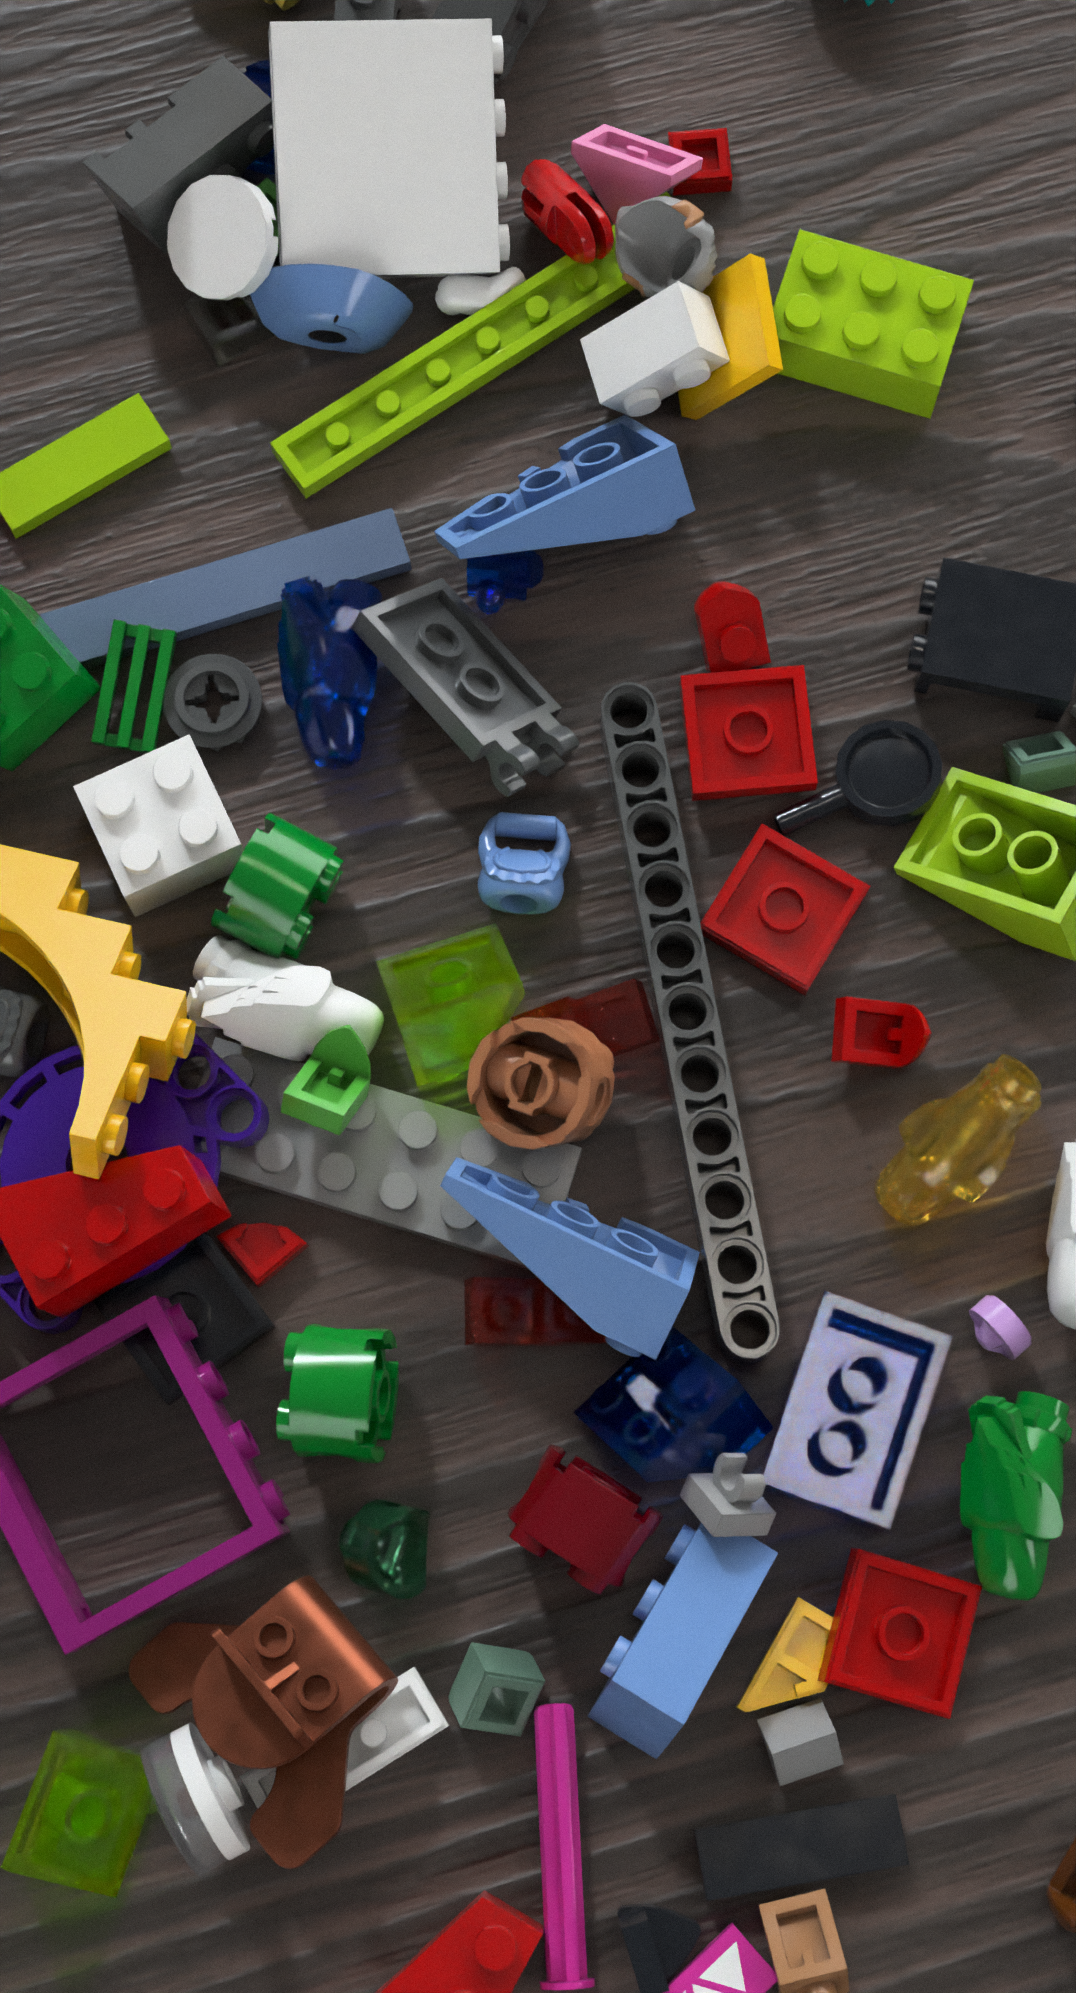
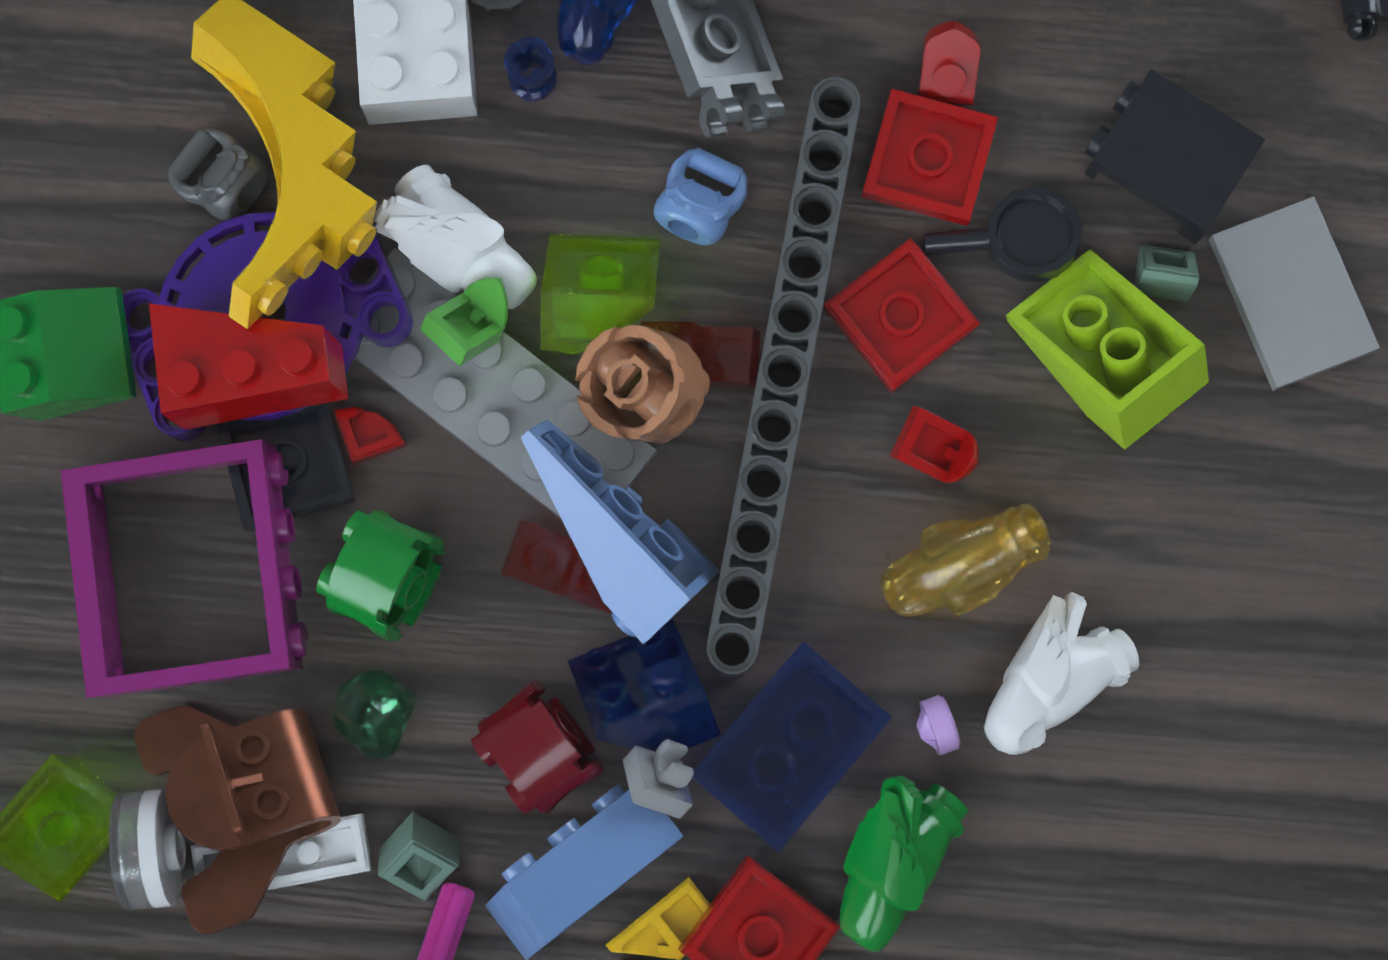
camera: 20 degrees right, 5 degrees up
(272, 790) = (519, 58): none -> clear blue bush
(276, 888) = (488, 143): green brick -> none

